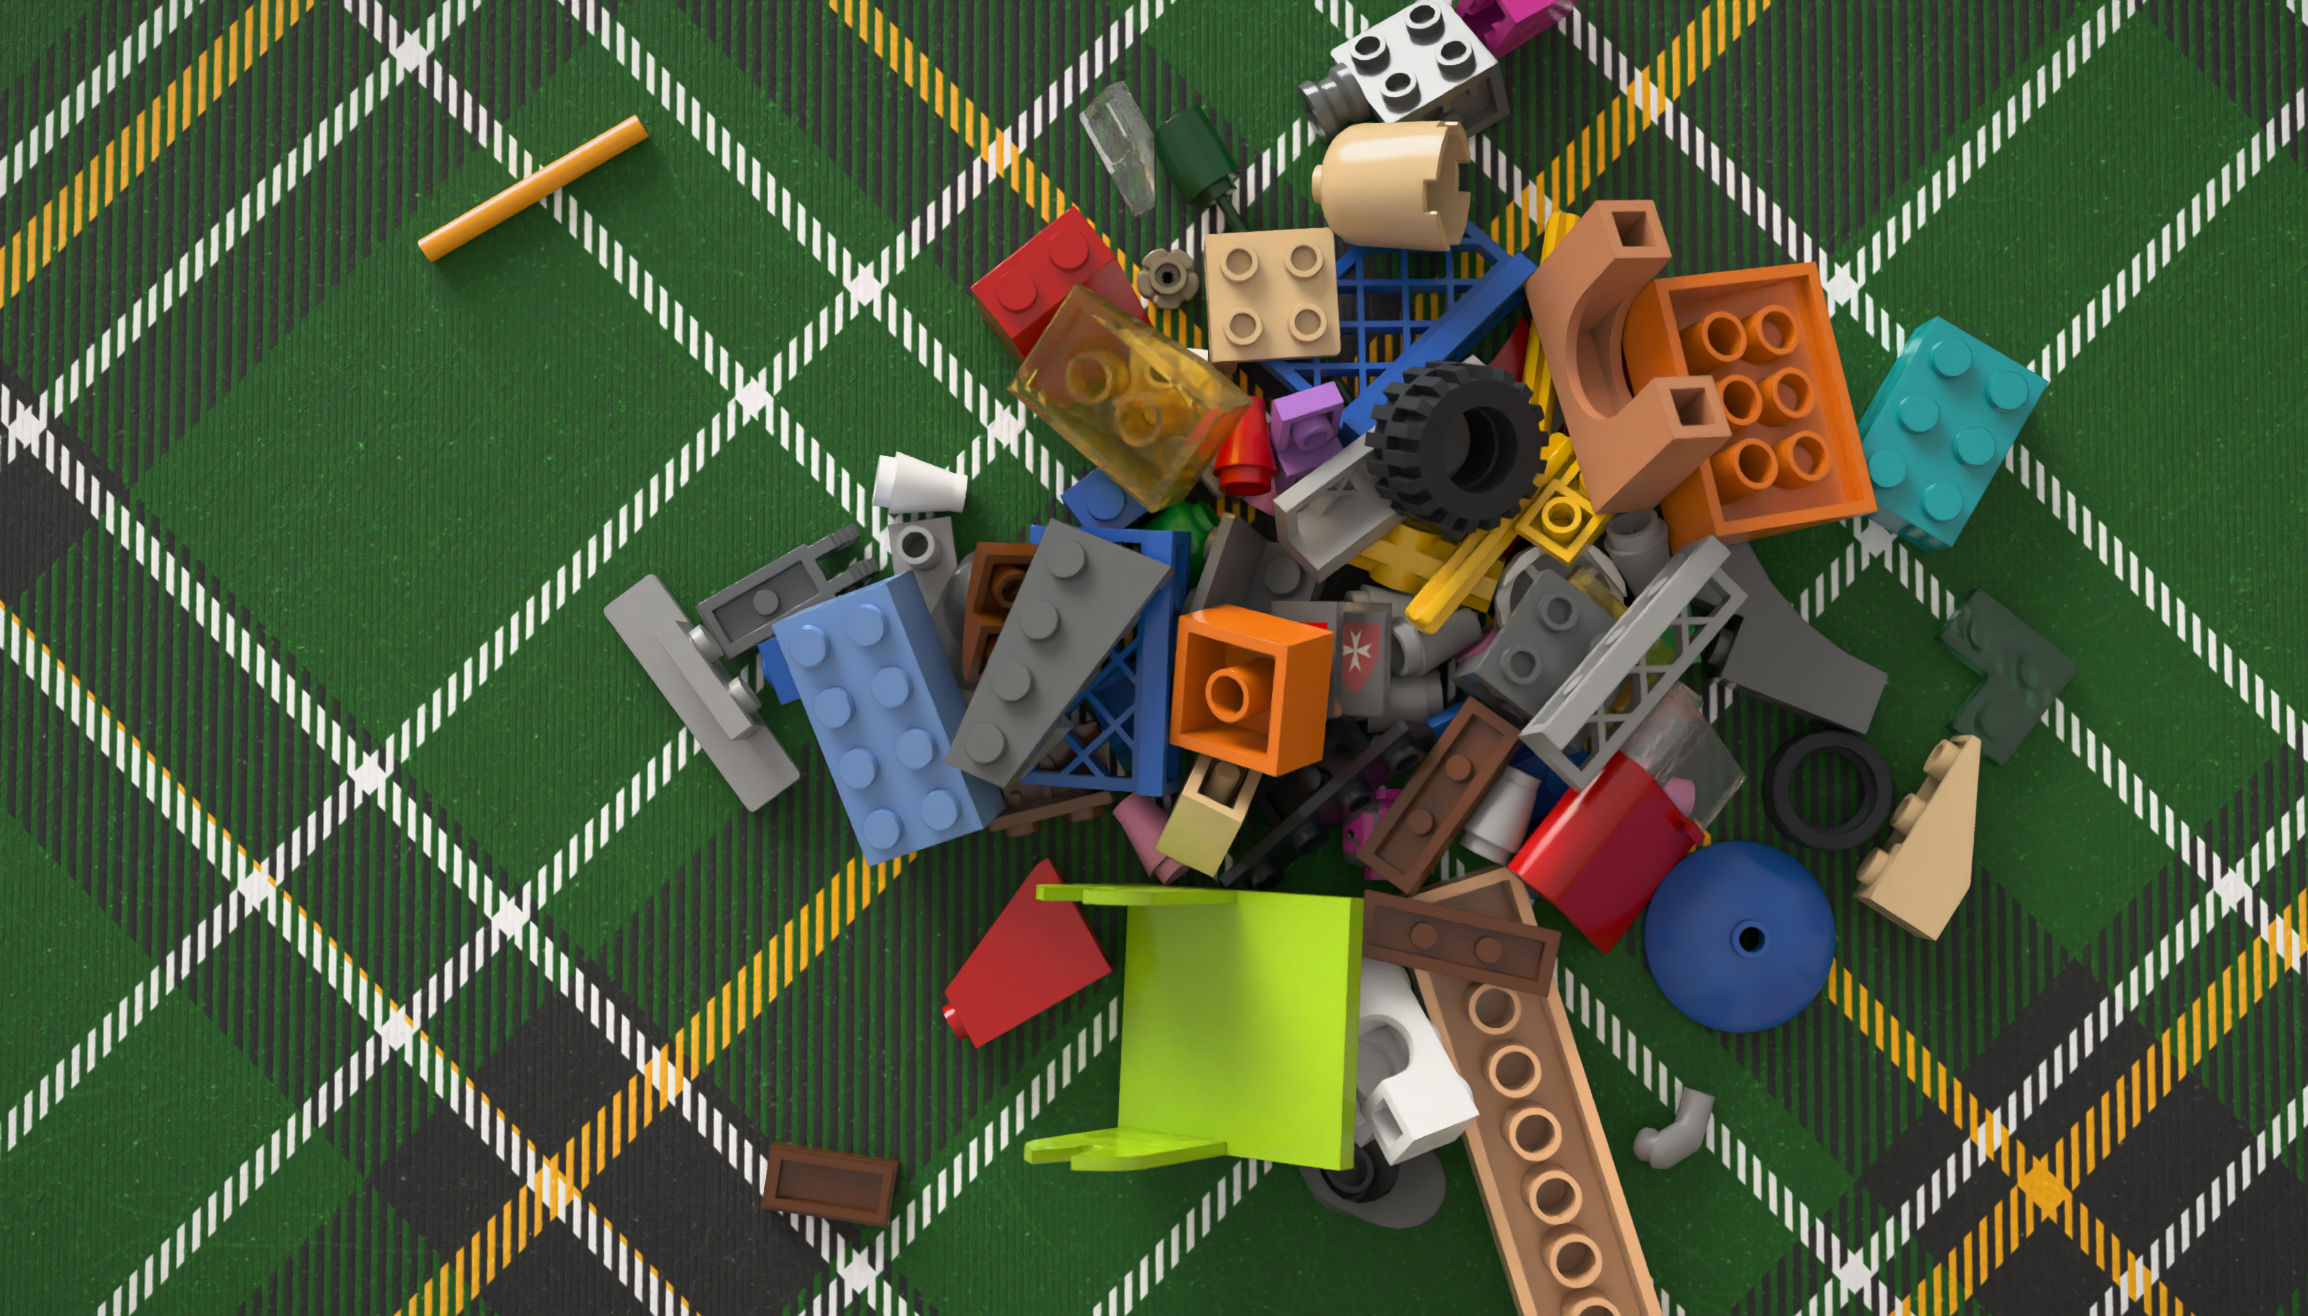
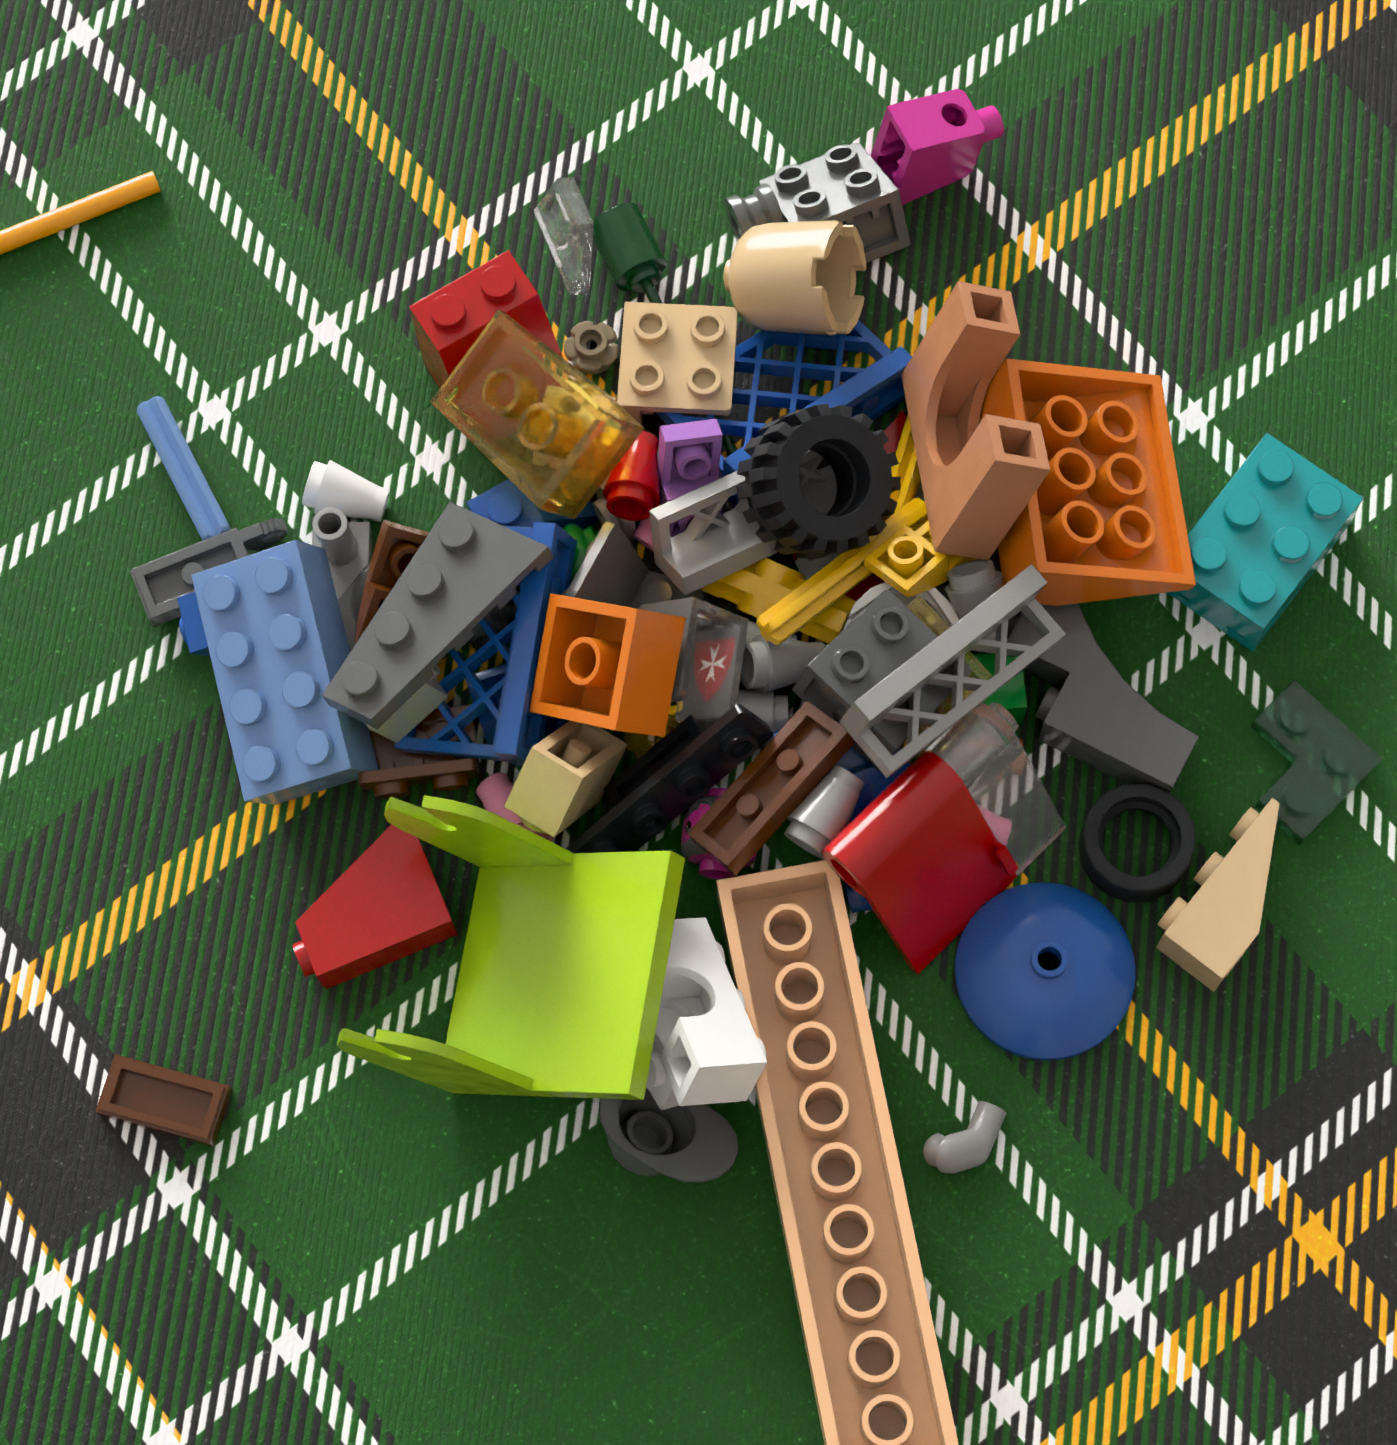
camera: 10 degrees right, 15 degrees down
(702, 692) = (125, 649): light grey bracket -> none
(733, 476) = (182, 468): none -> medium blue axle
(1458, 943) = (768, 915): reddish brown plate -> none

